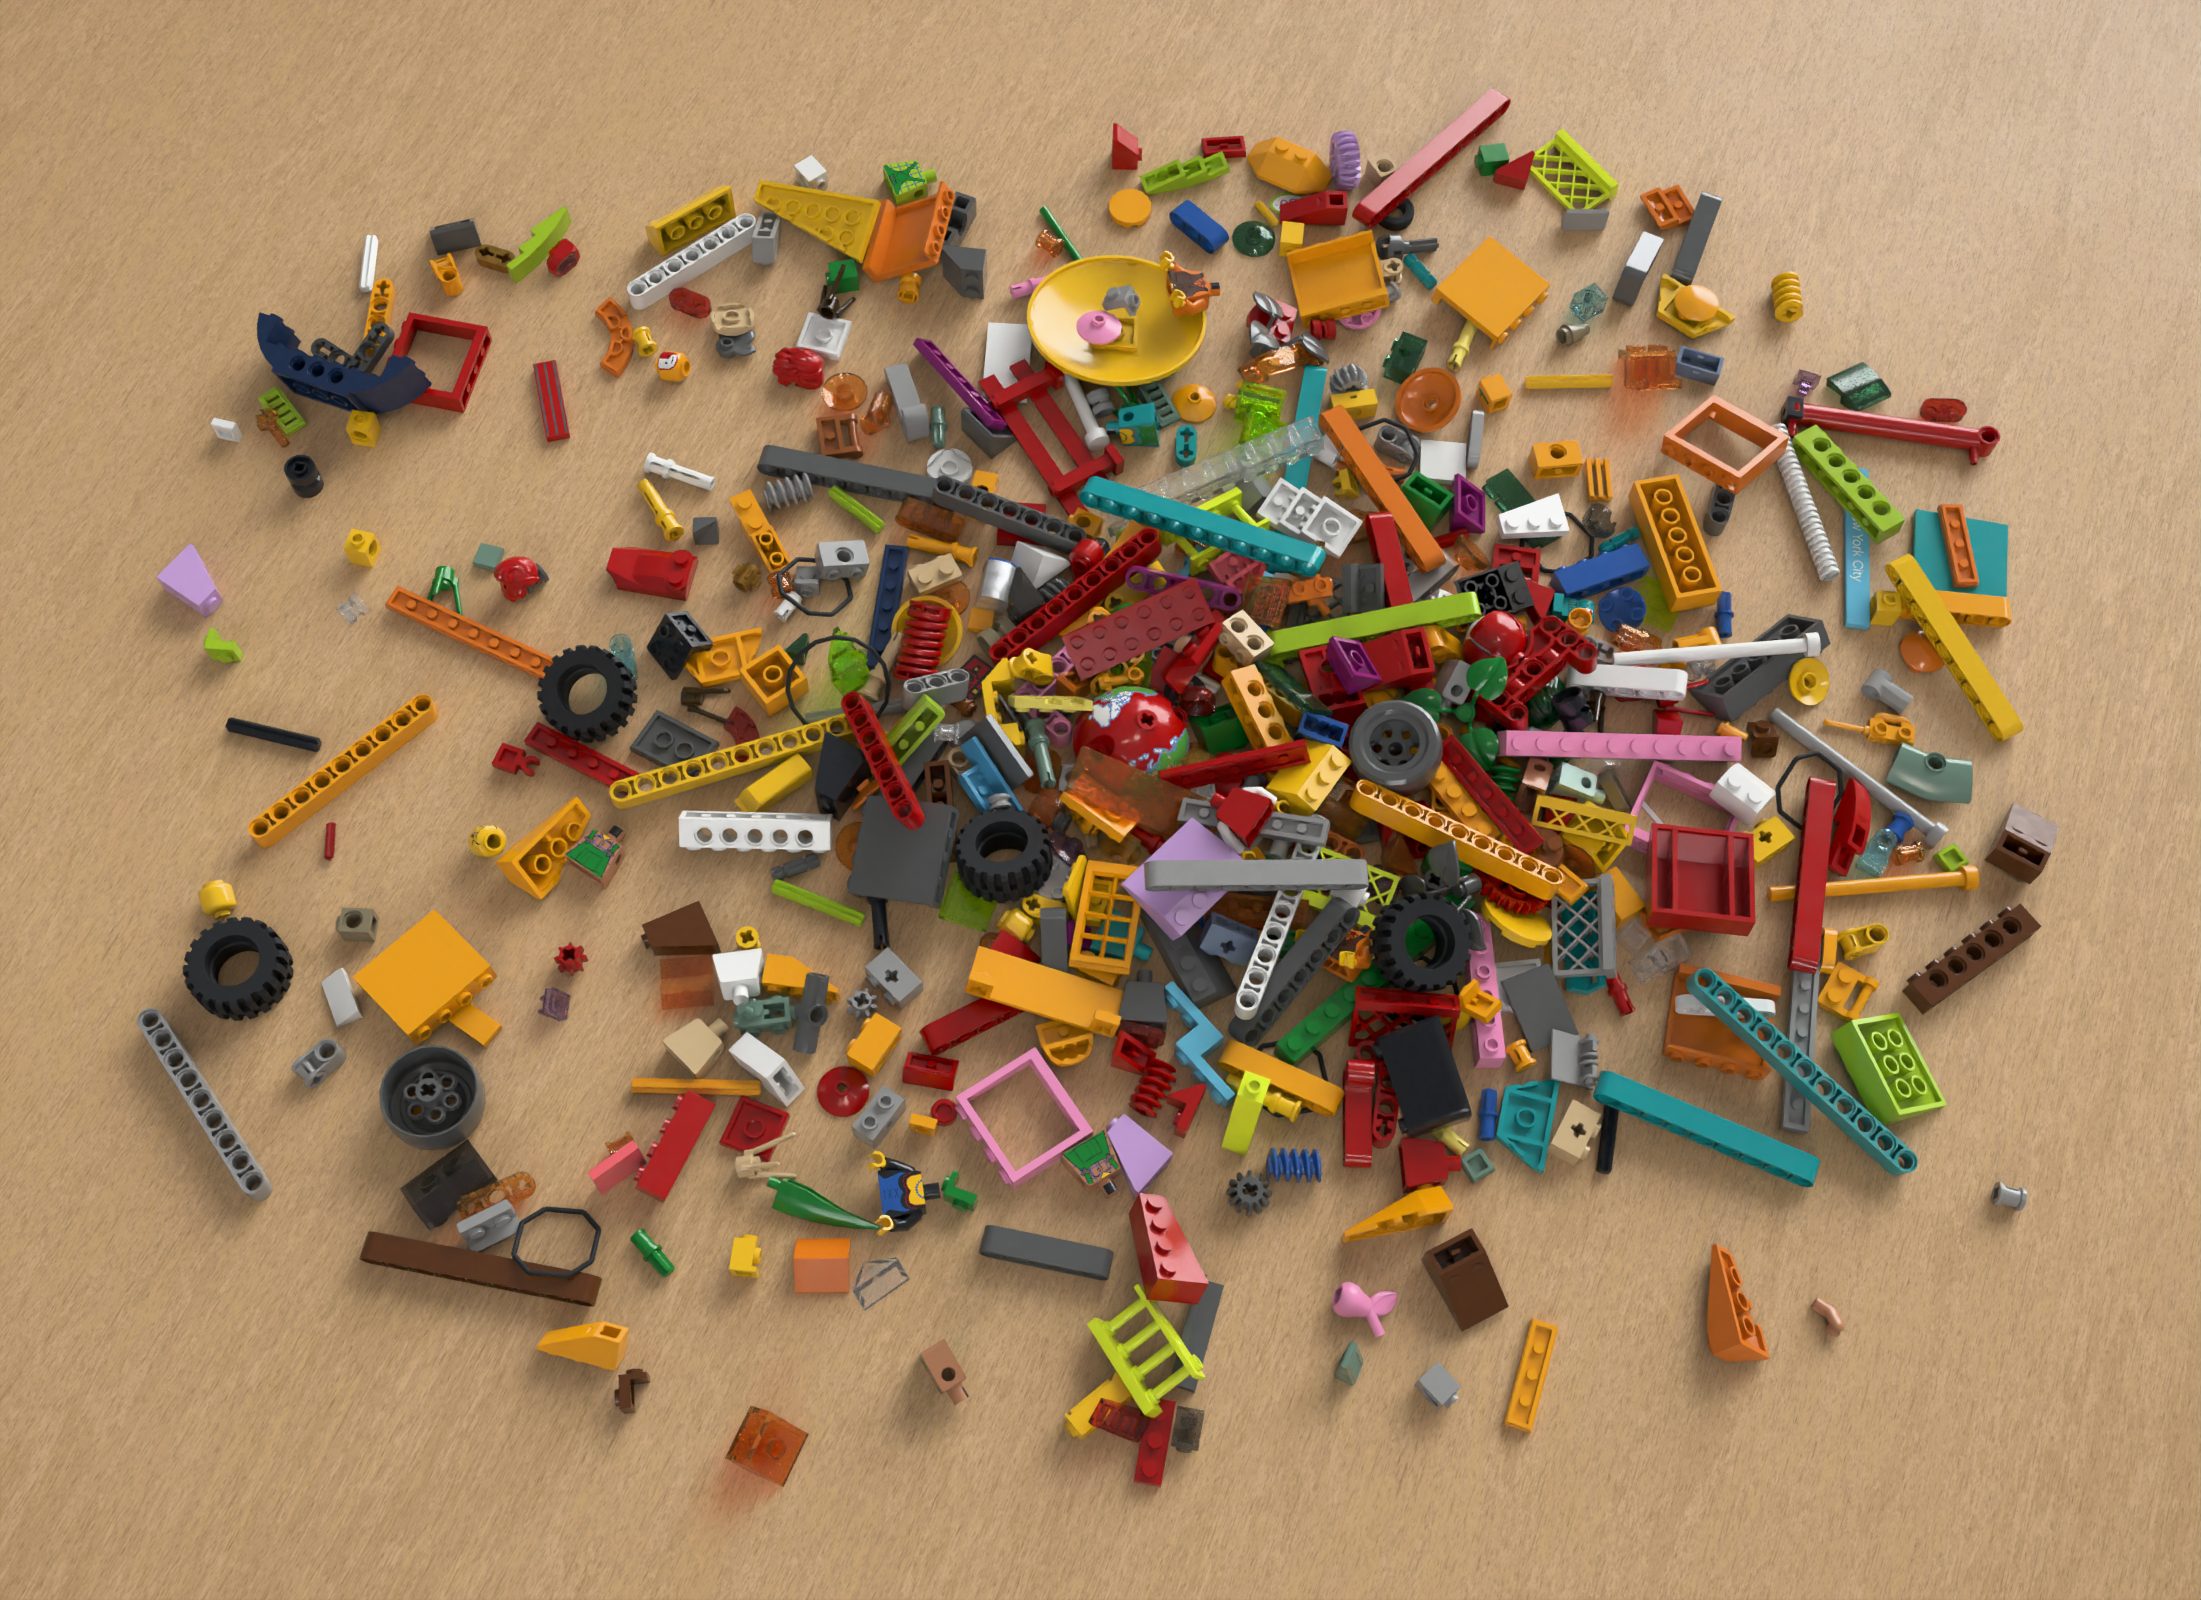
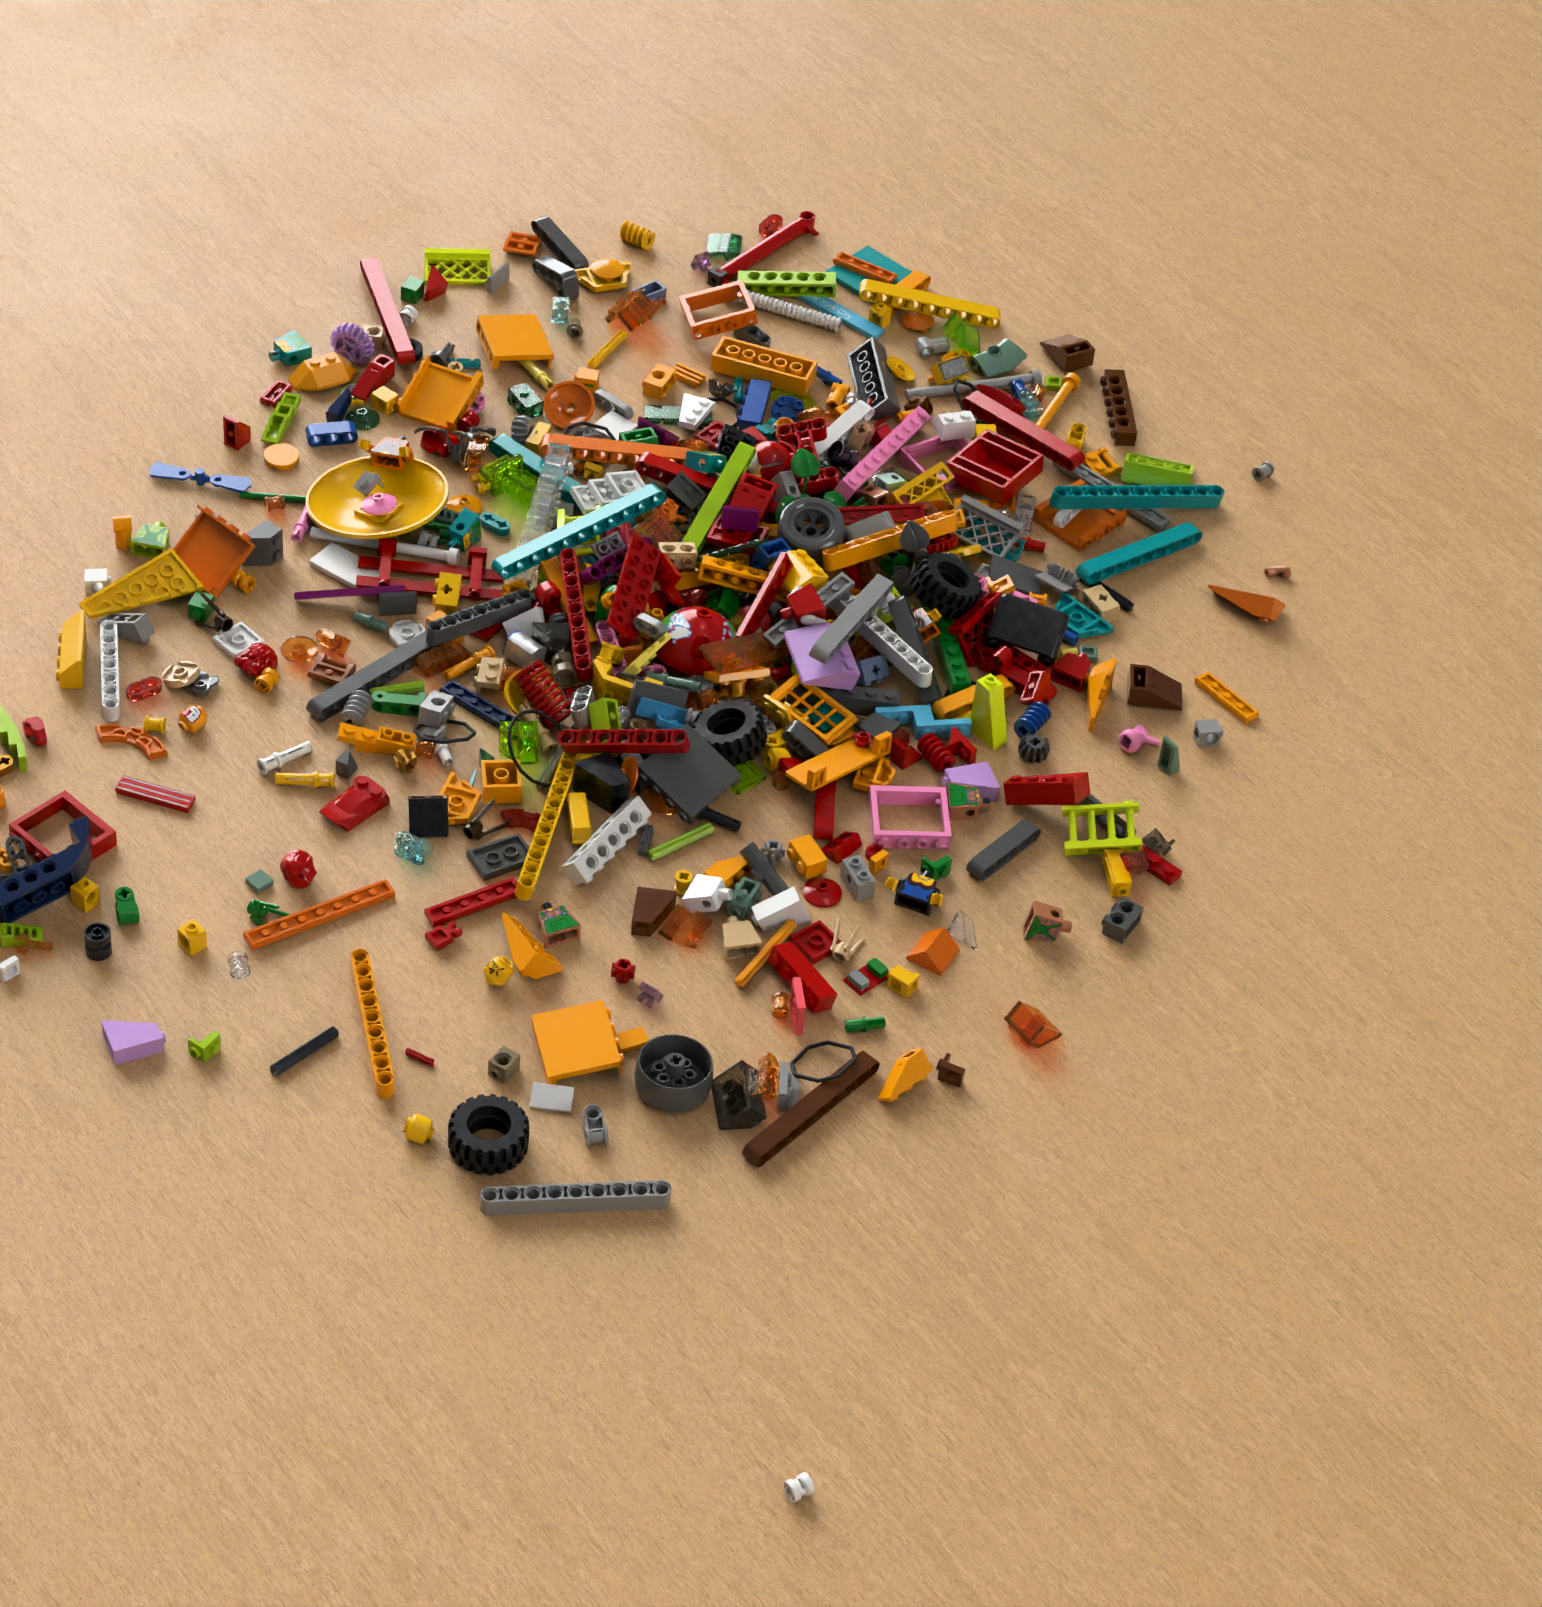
camera: 60 degrees left, 20 degrees down
(368, 472) = (126, 906): none -> green piece
(566, 672) = (440, 846): black tyre -> none
(737, 1214) = (867, 977): none -> piece
(775, 393) = (266, 681): none -> light orange wheel
(809, 1205) = (888, 938): green piece -> none
(830, 520) = (397, 703): none -> green leg
(888, 966) = (766, 828): light grey brick -> none
(891, 146) = (122, 529): none -> light orange piece
(910, 411) = (353, 628): light grey beam -> none
(1018, 1465) = (1122, 920): none -> dark grey brick
(1025, 477) = (450, 584): none -> yellow brick
(1049, 192) = (167, 471): none -> piece
(1094, 678) = (649, 625): none -> light grey beam
(1103, 1003) = (862, 739): none -> red plate
(1199, 566) = (607, 546): none -> light grey slope
(1242, 209) = (339, 407): none -> dark blue slope
(1297, 118) = (291, 349): none -> teal torso
(1344, 1140) = (1035, 687): none -> red slope
(1429, 577) = (713, 461): none -> teal torso
(1446, 179) = (408, 315): none -> white wheel
(1457, 806) = (869, 526): none -> light grey beam
(1639, 709) = (861, 438): none -> tan piece
(1809, 645) = (885, 347): white piece -> none
(1855, 736) = (950, 370): none -> brick
(1932, 712) = (962, 333): none -> clear neon green slope

